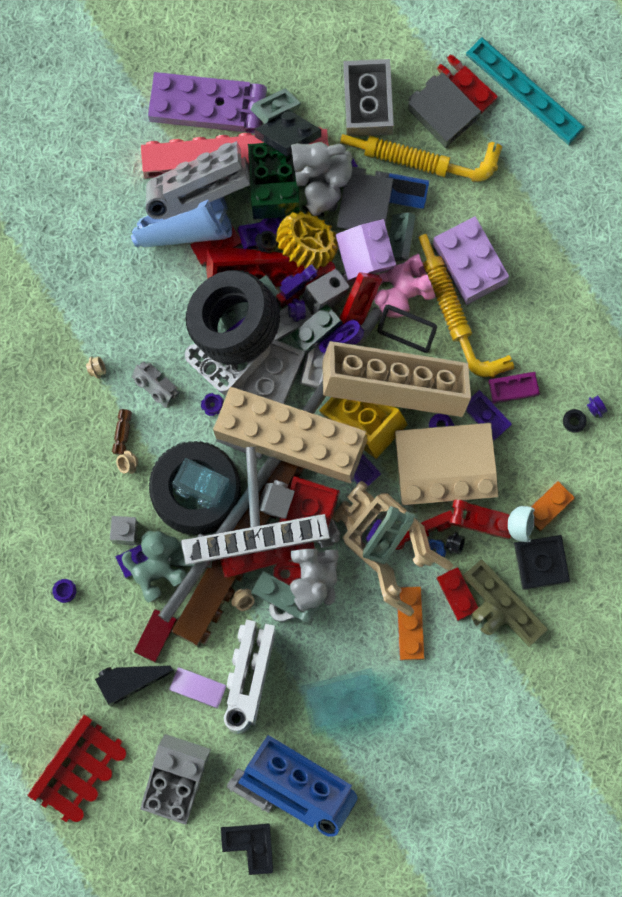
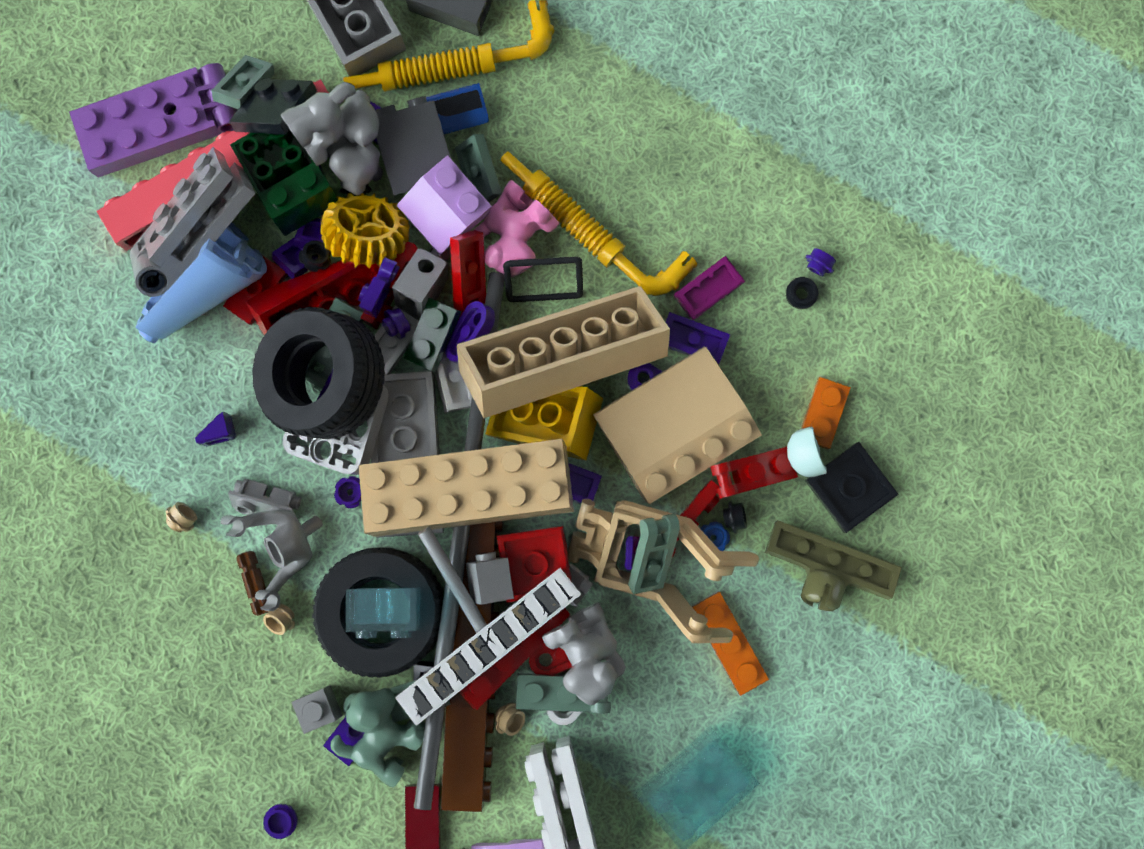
camera: 30 degrees left, 5 degrees up
(147, 324) = (217, 431): none -> dark purple slope
(155, 416) = (285, 546): none -> light grey piece
(457, 593) = (771, 579): red plate -> none
(471, 260) = (579, 156): lavender brick -> none

